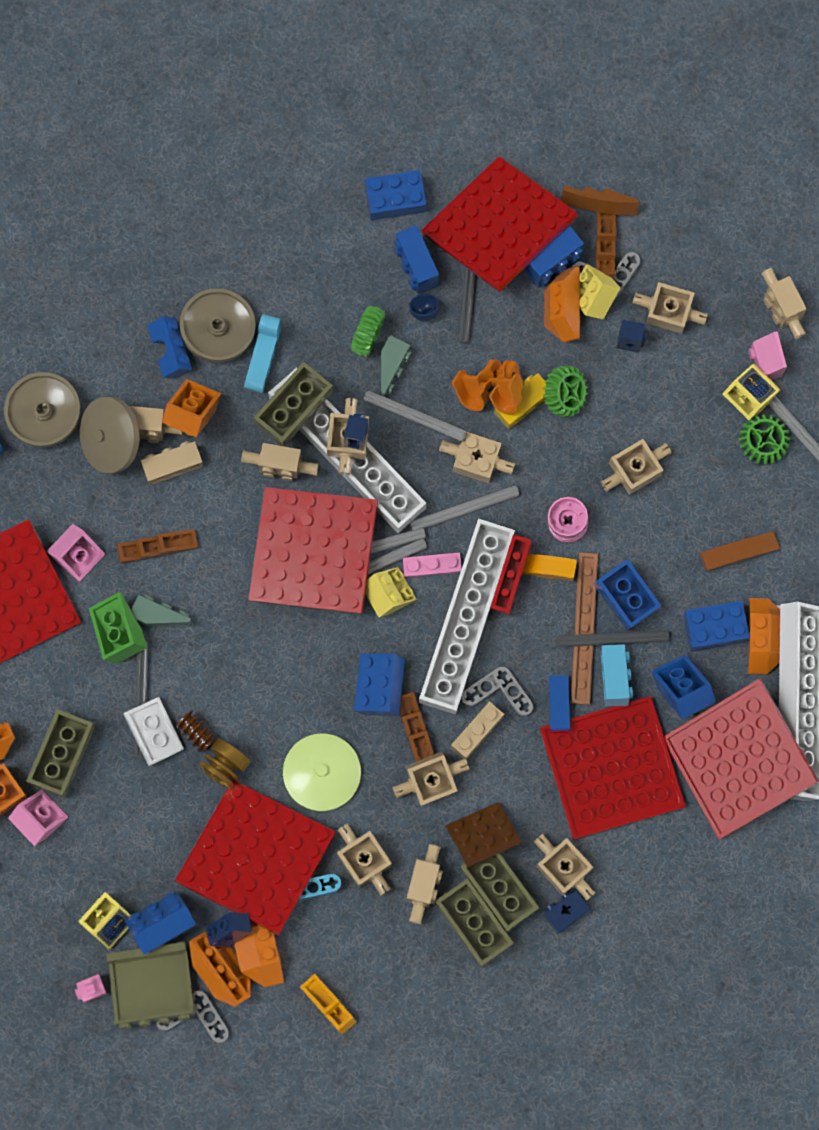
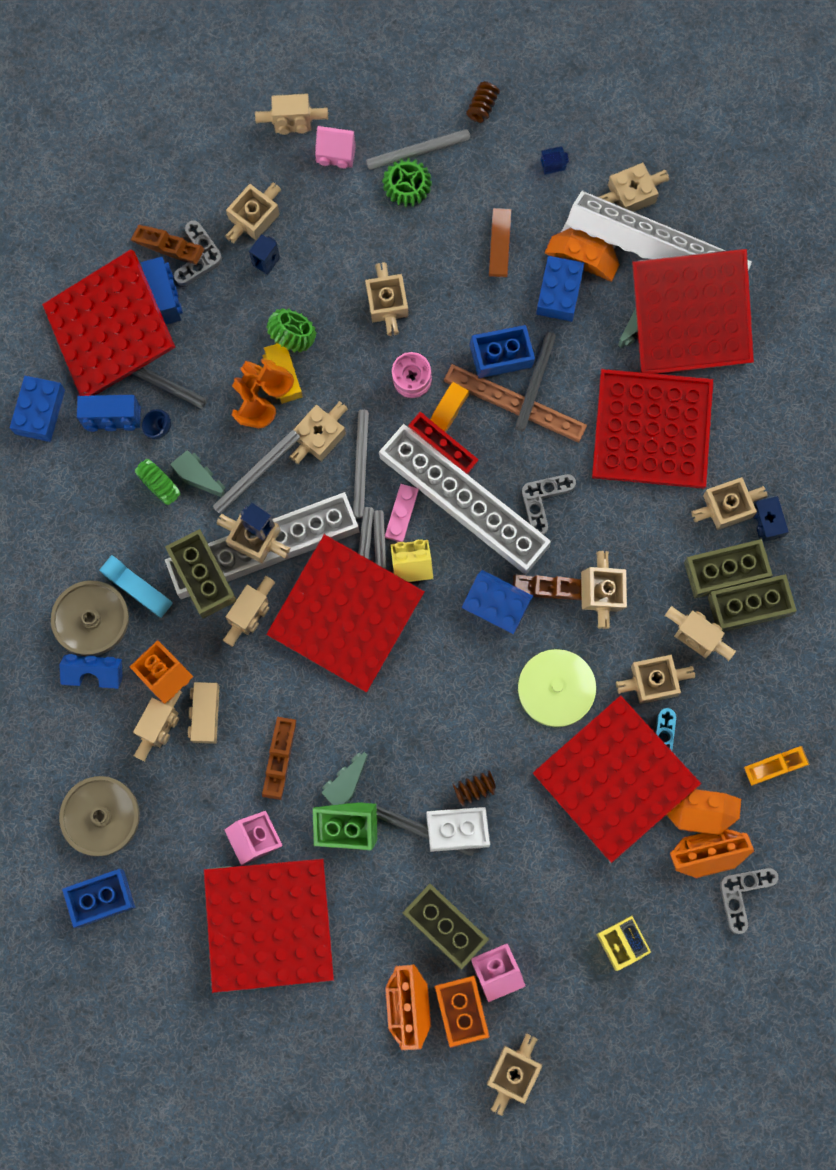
camera: 60 degrees left, 0 degrees up
(90, 989) = (683, 984): bright pink brick -> none
(109, 434) = (154, 759): dark tan dish -> none
(151, 986) = (702, 925): olive panel -> none
(160, 922) = (647, 892): blue brick -> none
(224, 763) = (516, 773): pearl gold wheel -> none
(228, 929) = (679, 829): dark blue brick -> none
(477, 731) = (574, 532): tan brick -> none
(483, 834) = (674, 562): reddish brown plate -> none
(559, 703) = (577, 450): blue tile -> none
(563, 305) = (209, 302): orange wedge -> none
(596, 292) = (209, 269): light yellow slope -> none
(606, 202) = (129, 228): dark orange slope -> none
(615, 675) = (571, 391): medium azure brick -> none
(683, 686) = (607, 334): blue brick -> none
(751, 392) = (360, 173): light yellow slope -> none

